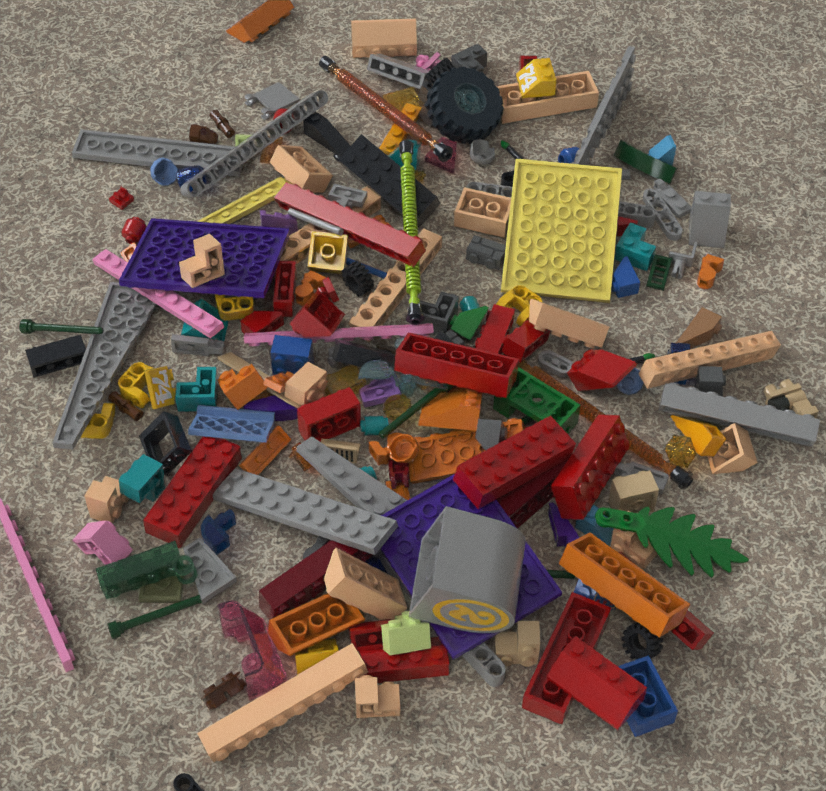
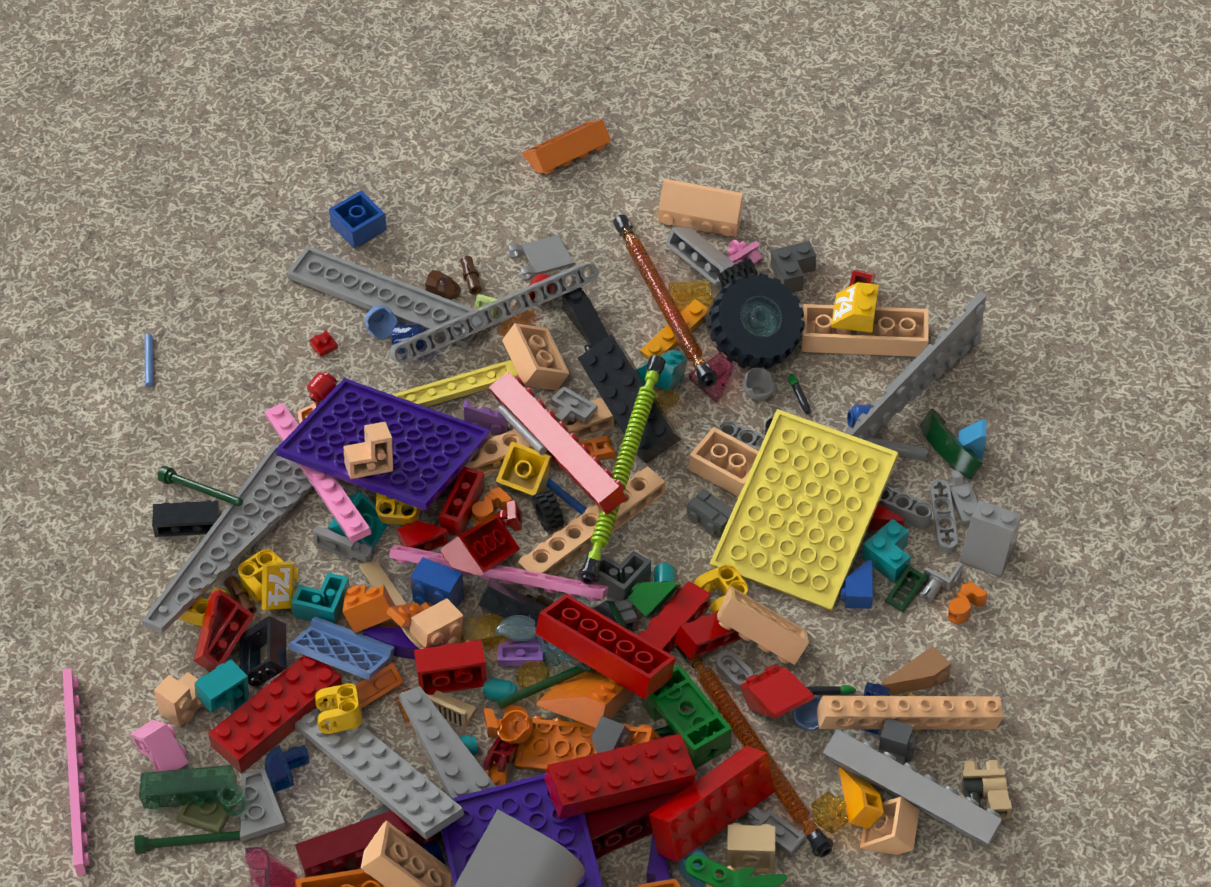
camera: 20 degrees right, 0 degrees up
(115, 101) = (357, 219): none -> blue brick
(122, 435) = (221, 629): none -> red wedge
(250, 469) = (341, 709): none -> yellow piece

